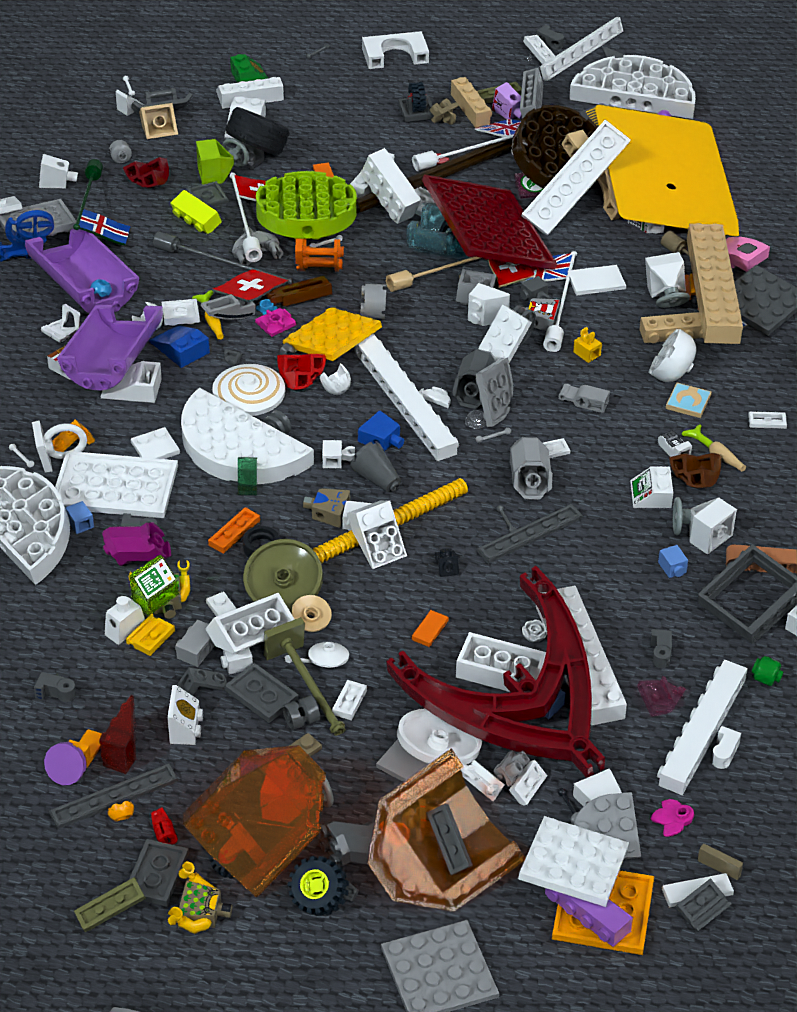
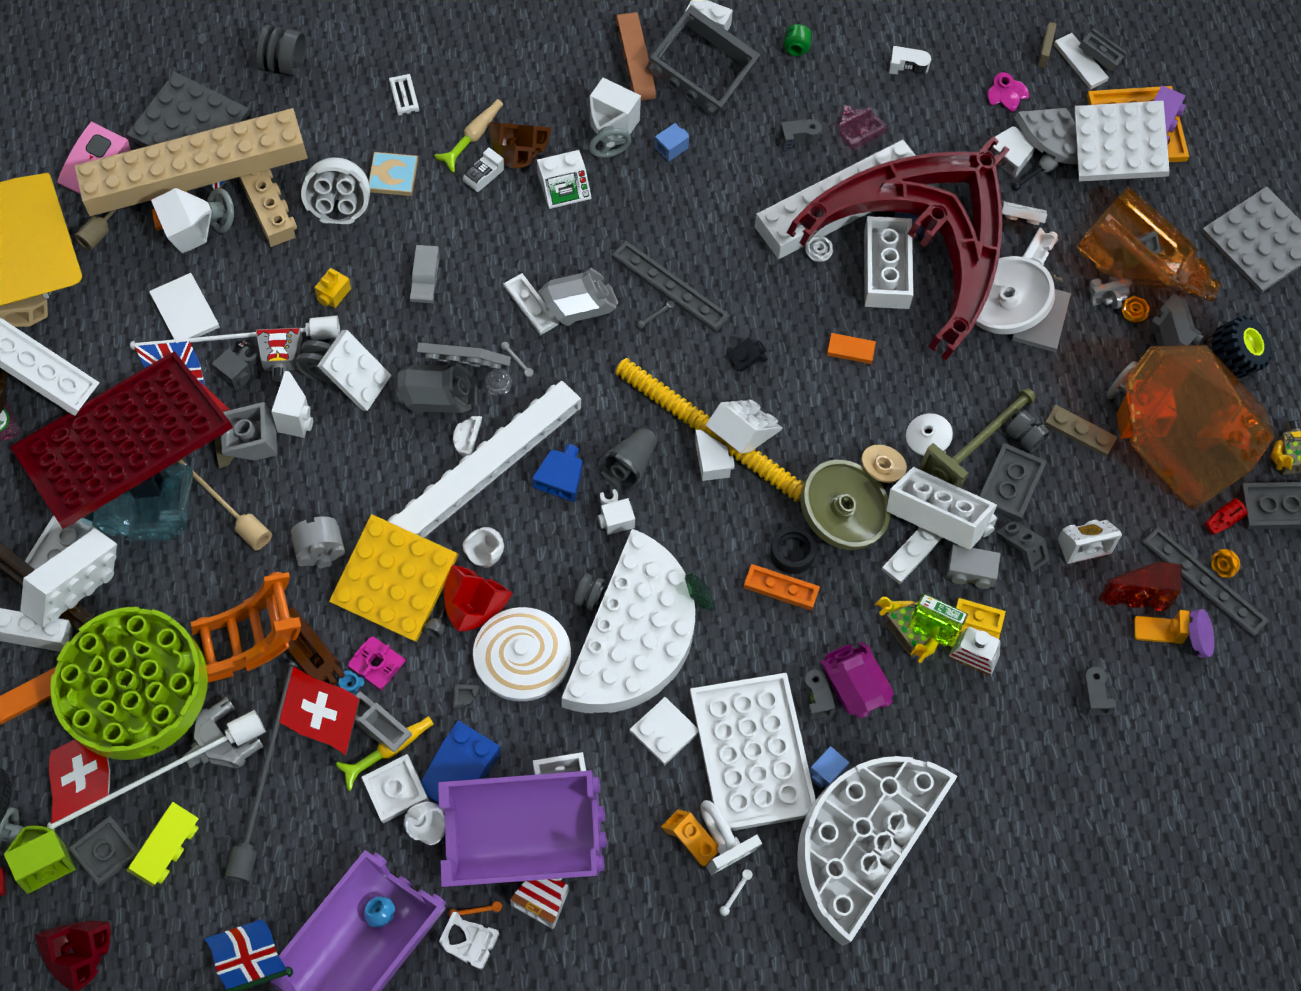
camera: 110 degrees left, 20 degrees up
(328, 505) = (707, 494): dark tan torso -> none
(349, 700) = (985, 395): white plate -> none
(511, 767) = (1027, 224): light grey hips -> none
(702, 728) = (890, 81): white brick -> none

